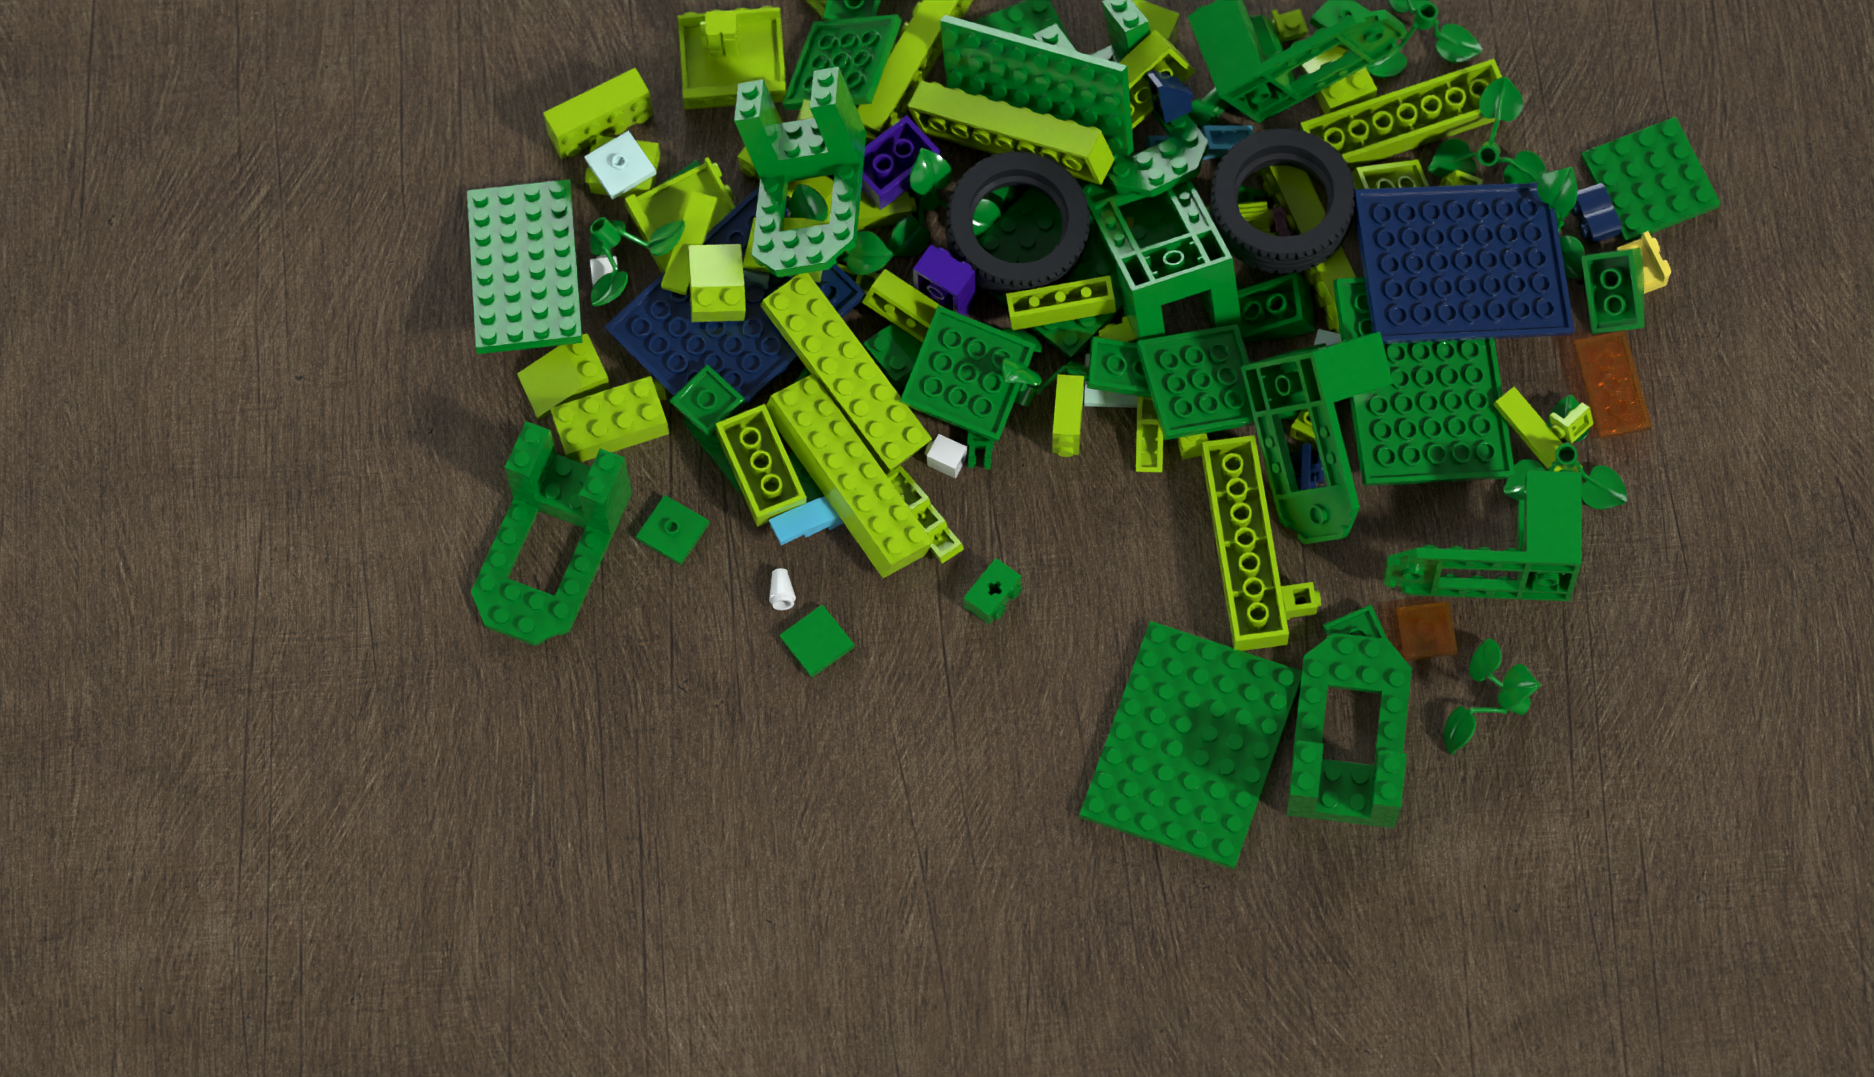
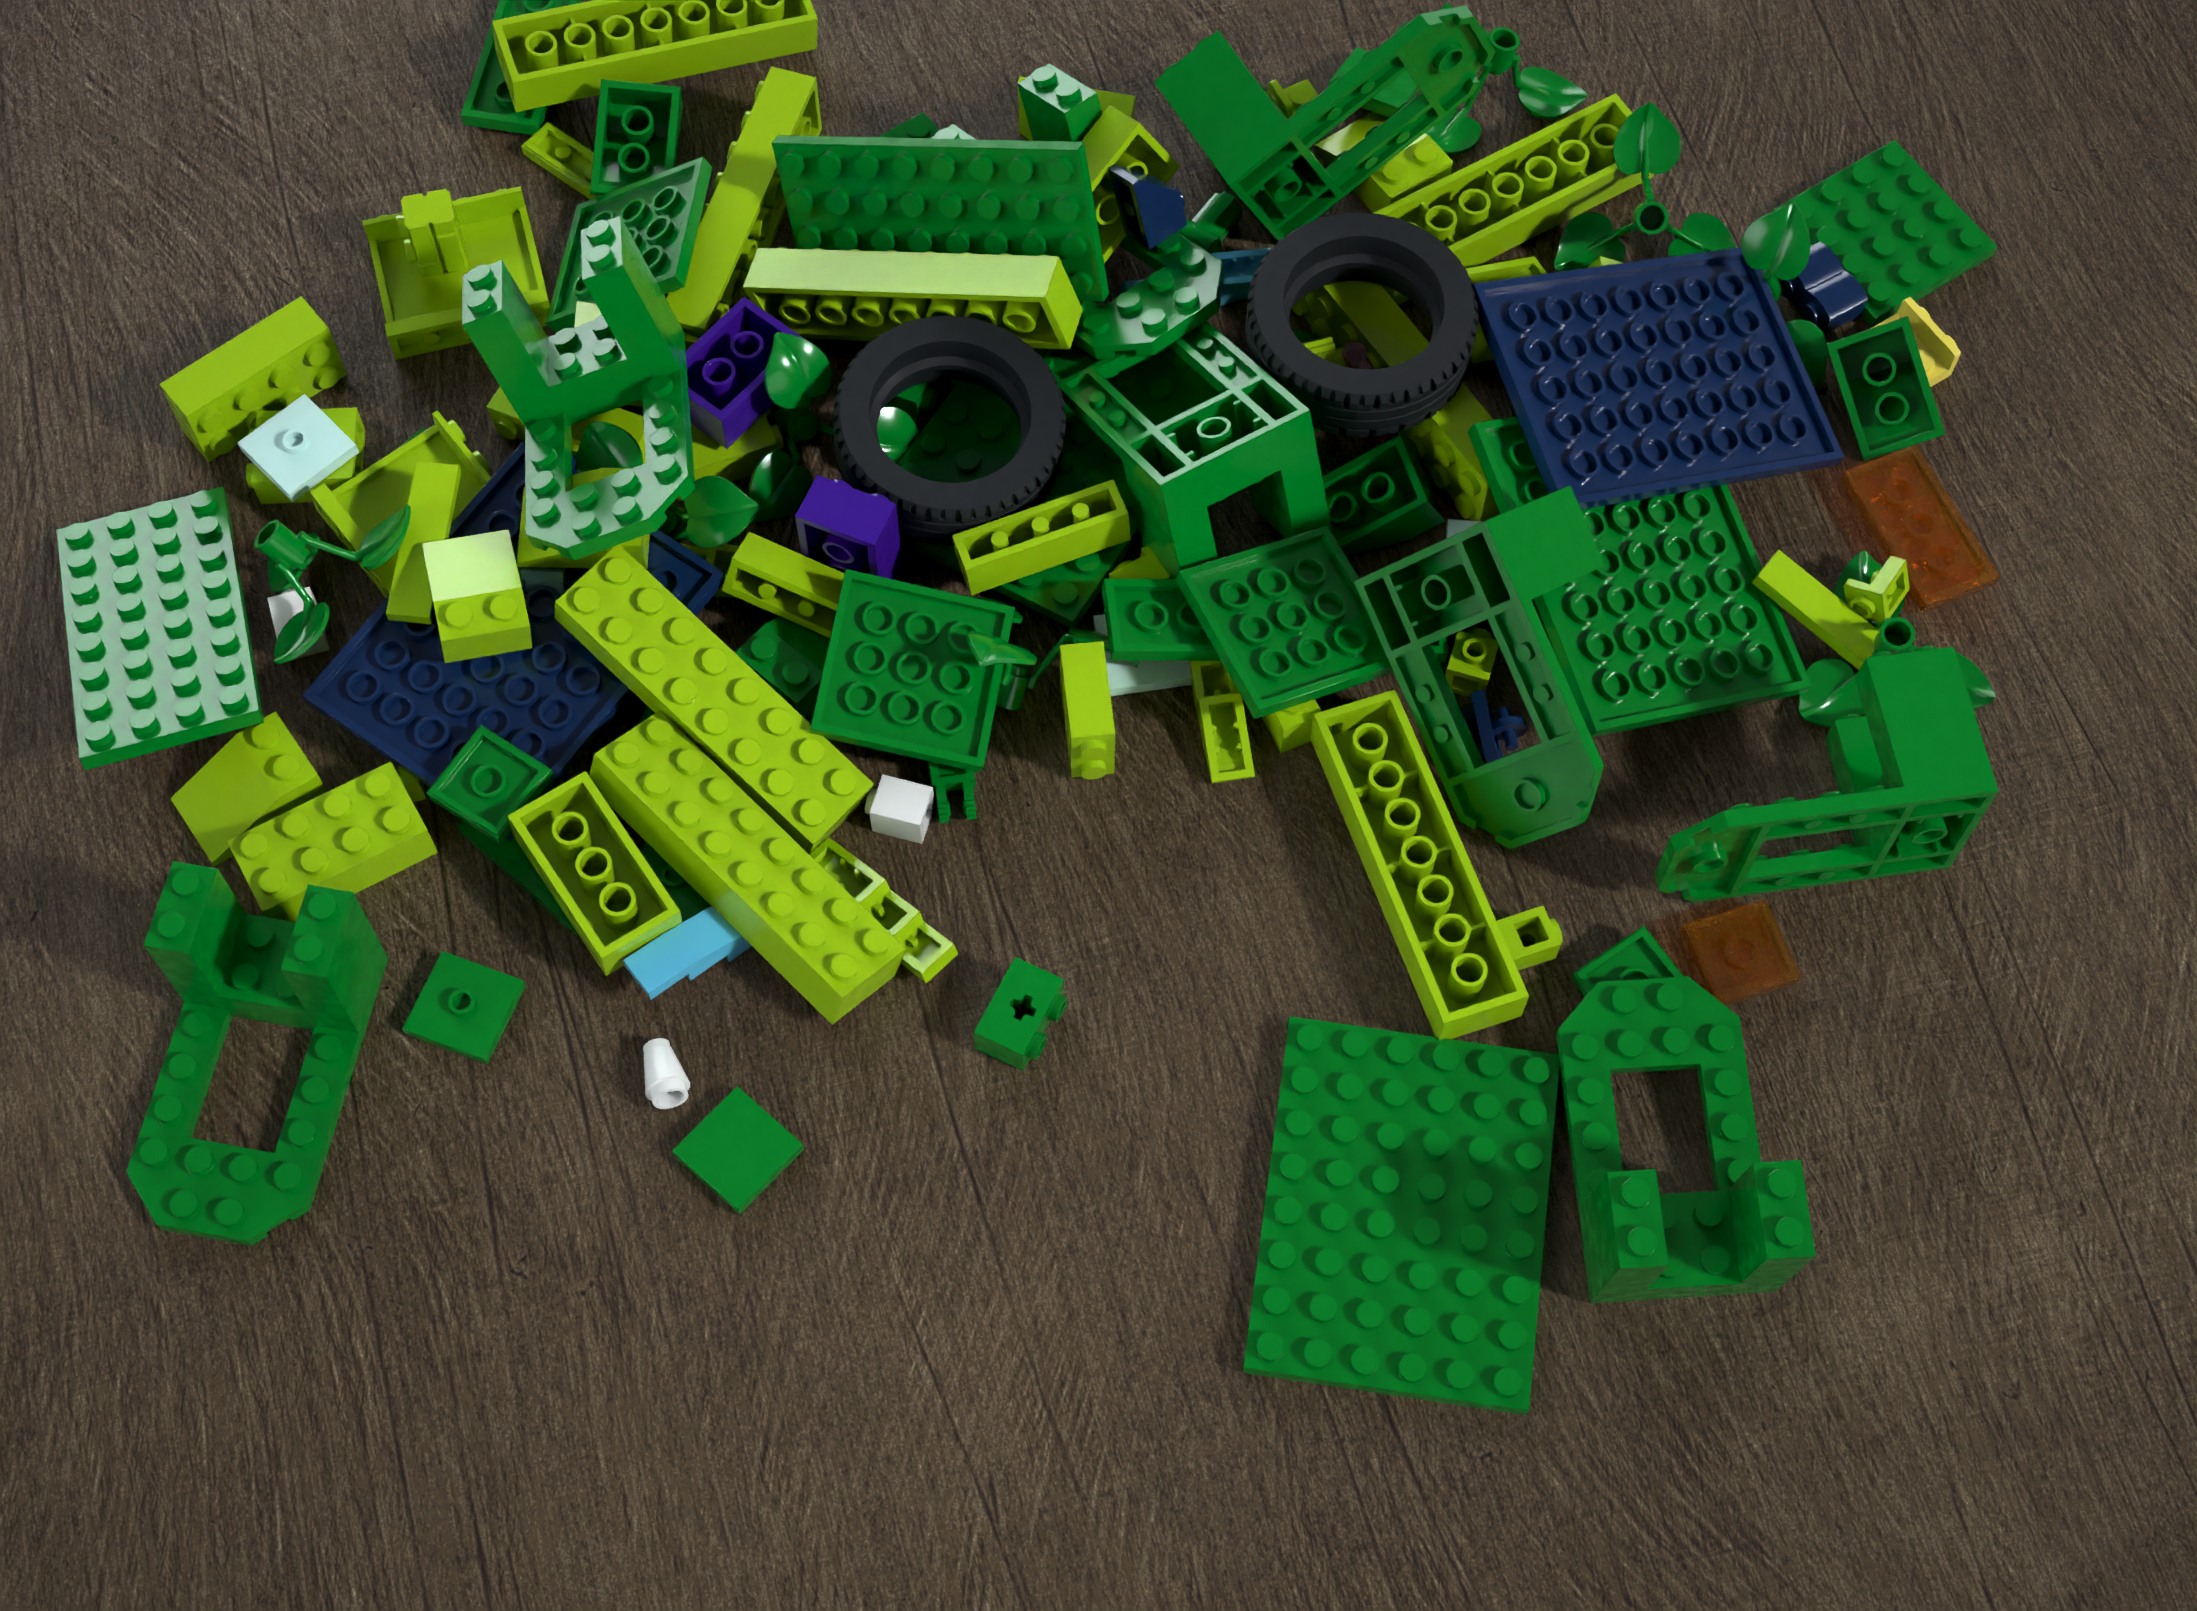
camera: 15 degrees left, 5 degrees down
(1513, 697) = (1937, 1014): green plant -> none

